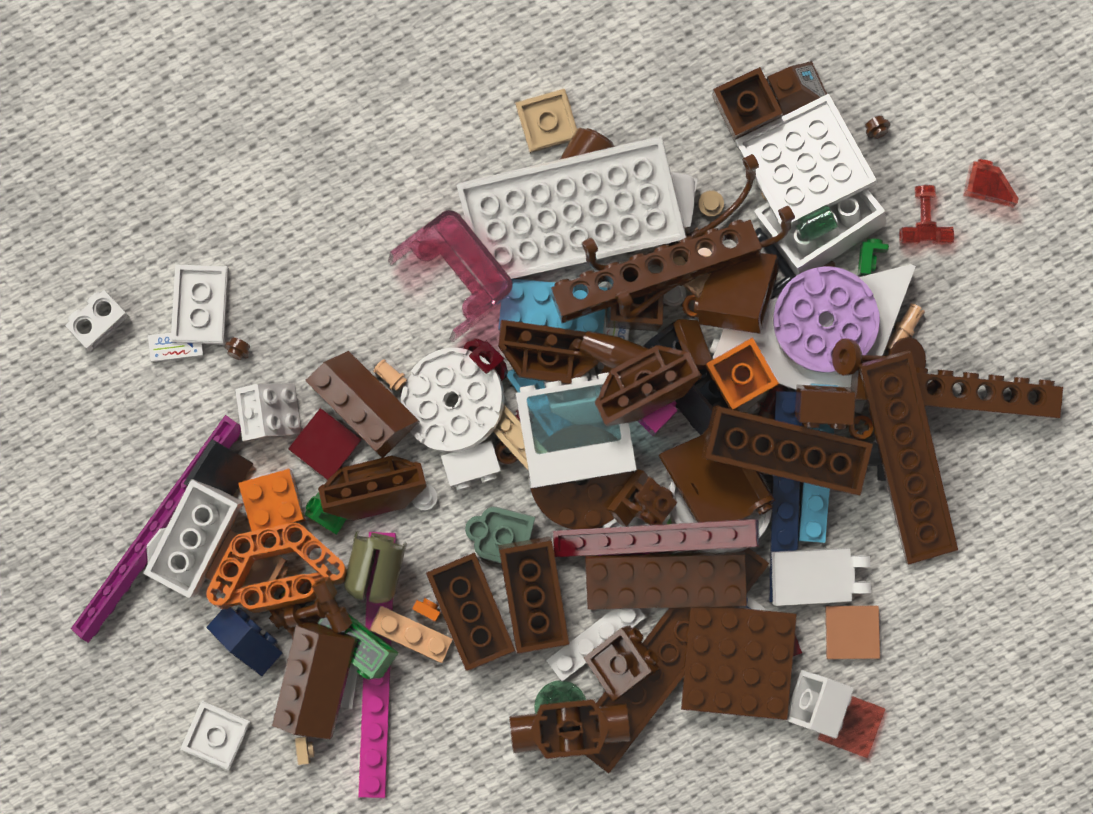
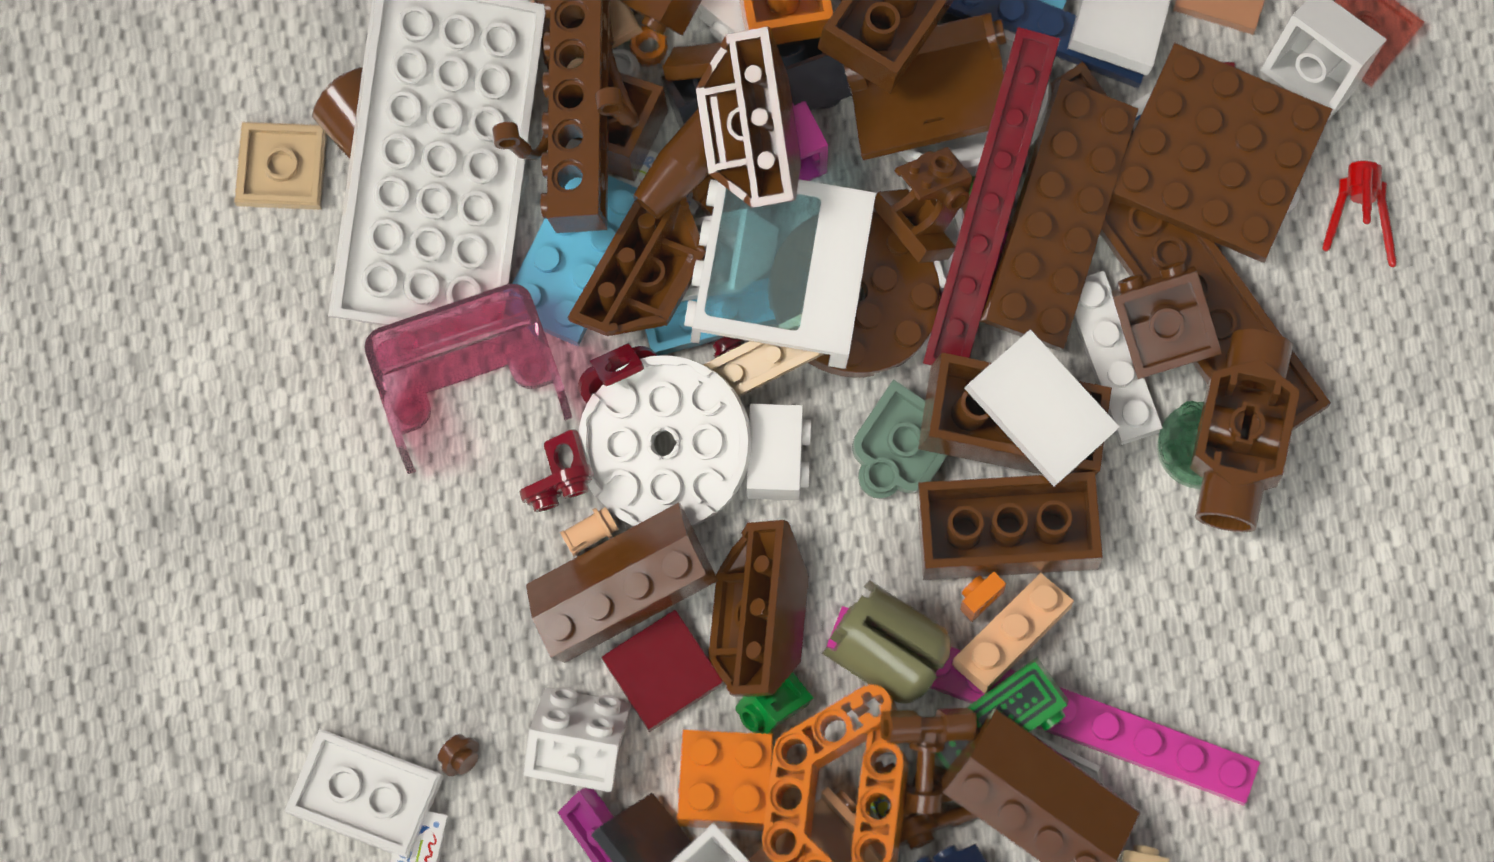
camera: 65 degrees left, 10 degrees down
(411, 353) = (567, 481): none -> dark red bracket
(426, 499) = (808, 540): white plate -> none
(506, 458) = (784, 392): reddish brown plate -> none
(539, 608) = (1042, 407): none -> white tile
(751, 752) = (1365, 187): none -> red plant

